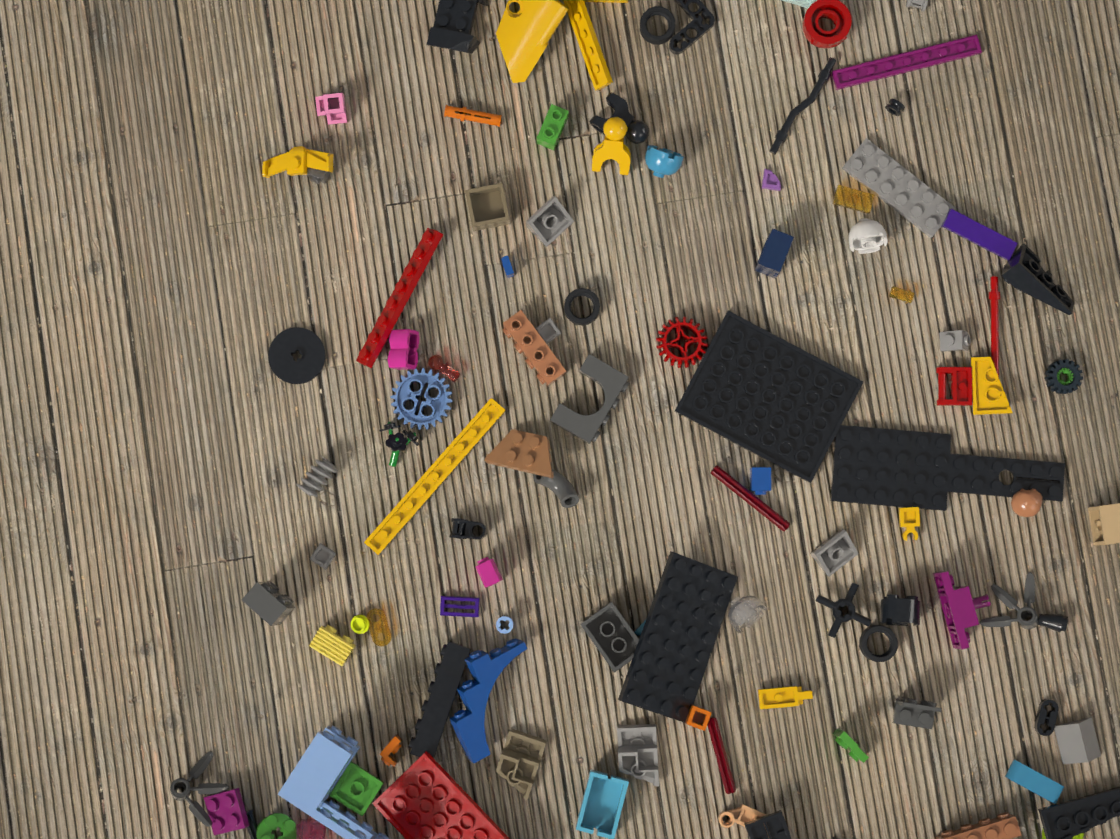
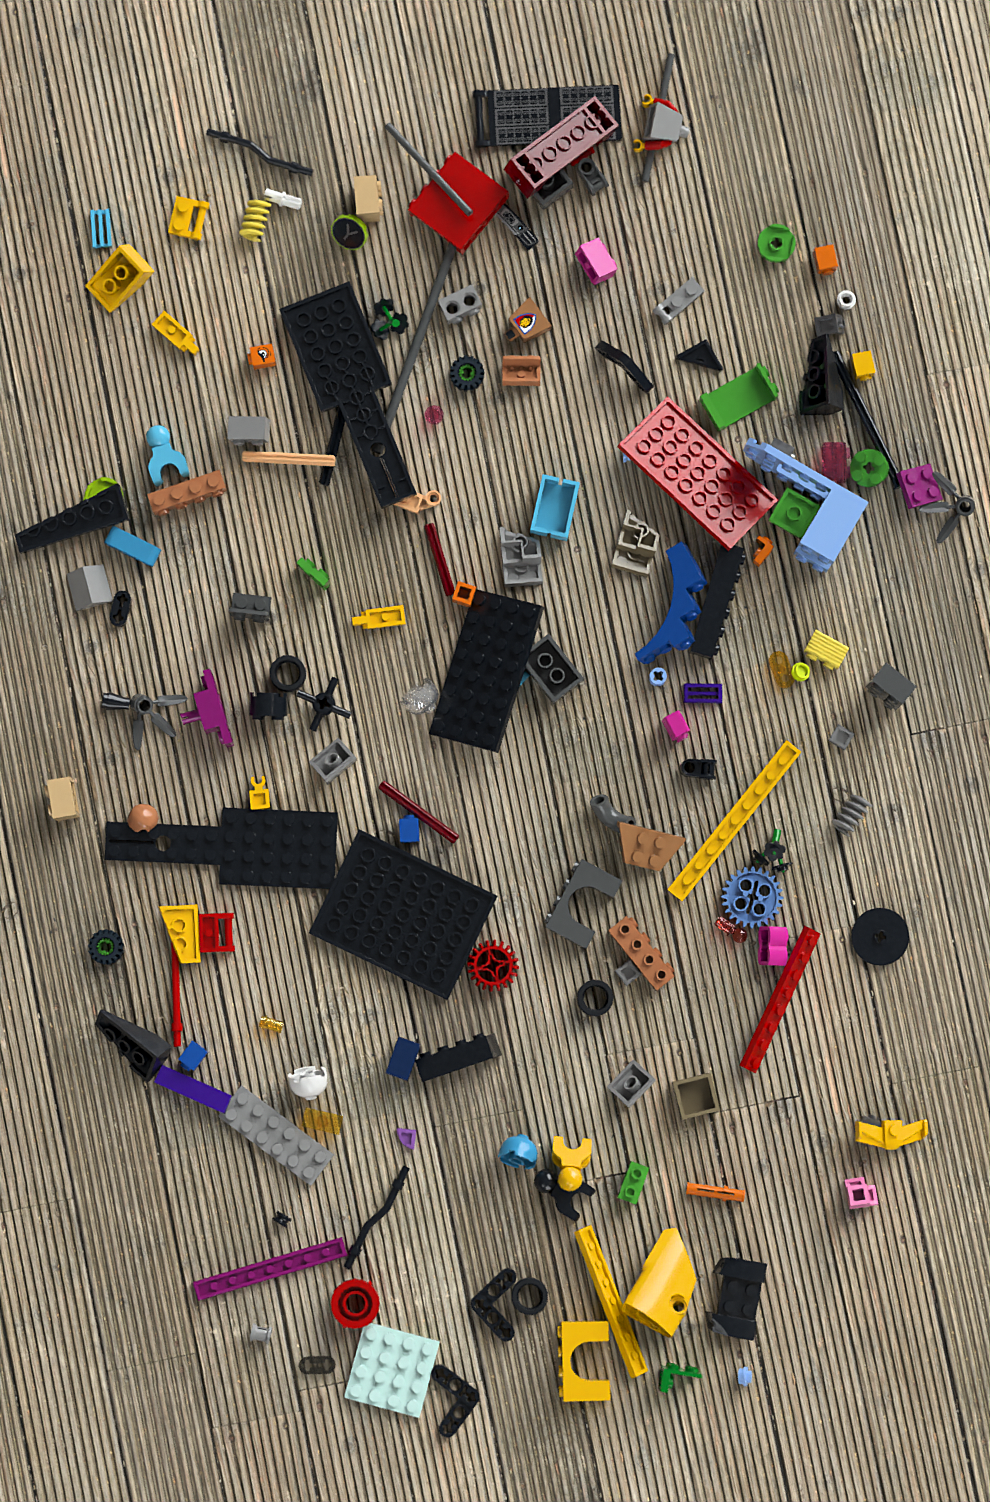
camera: 175 degrees right, 0 degrees up
(507, 266) = (672, 1035): blue tile -> none
(719, 253) = (457, 1057): none -> black wedge
(954, 341) = (216, 978): light grey bracket -> none
(979, 266) = (192, 1056): none -> blue brick

